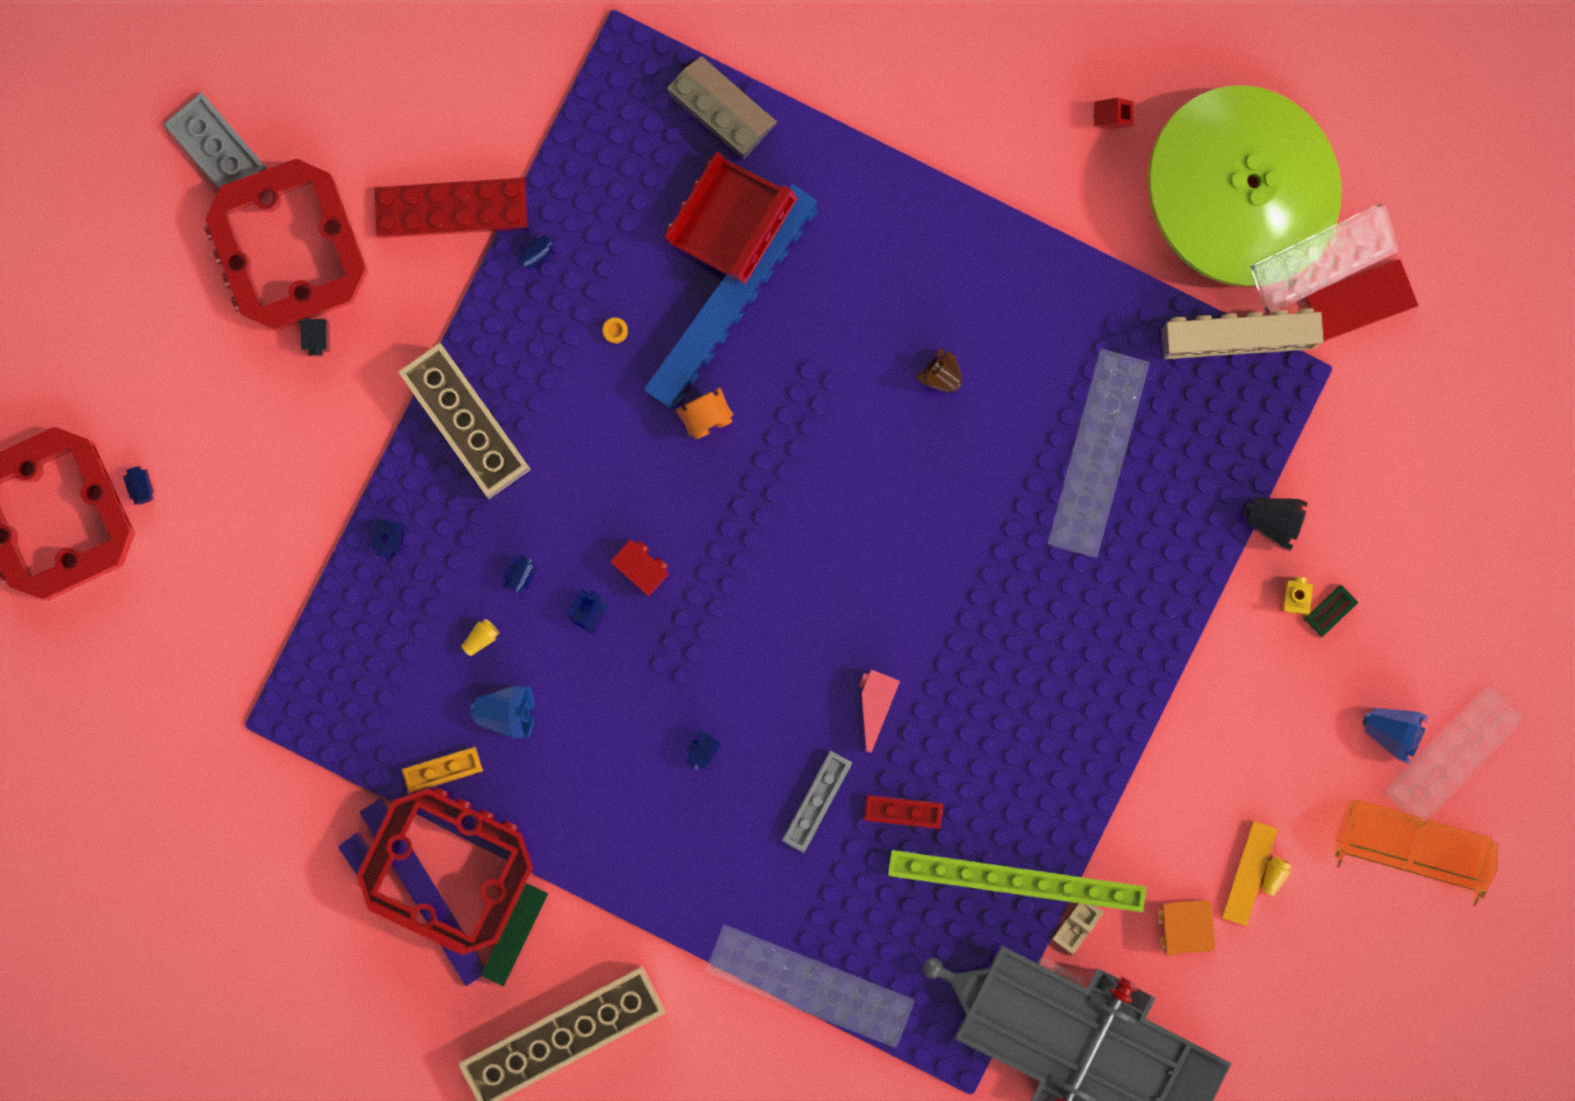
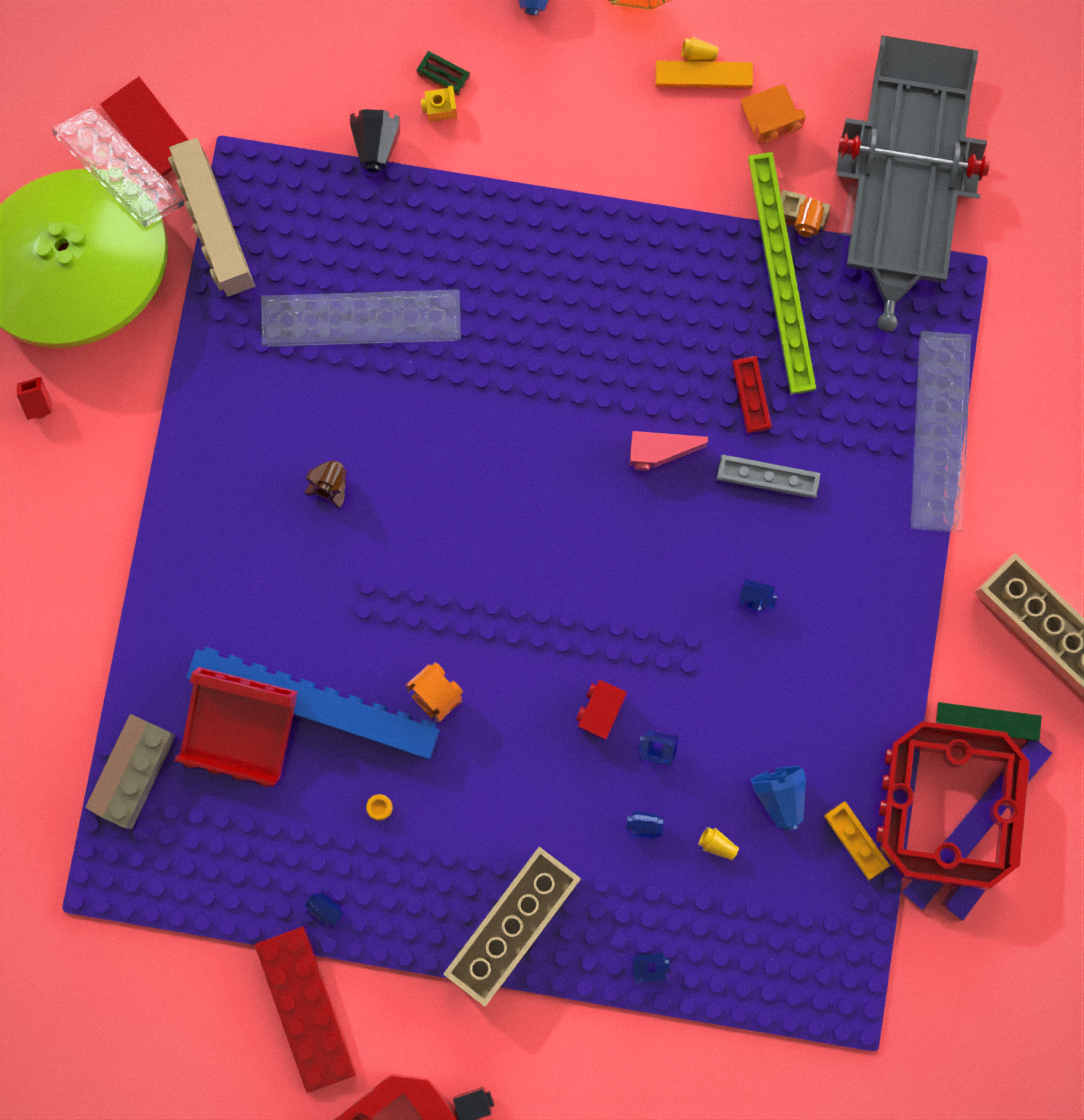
camera: 105 degrees left, 5 degrees down
(1064, 927) = (809, 217): none -> orange brick

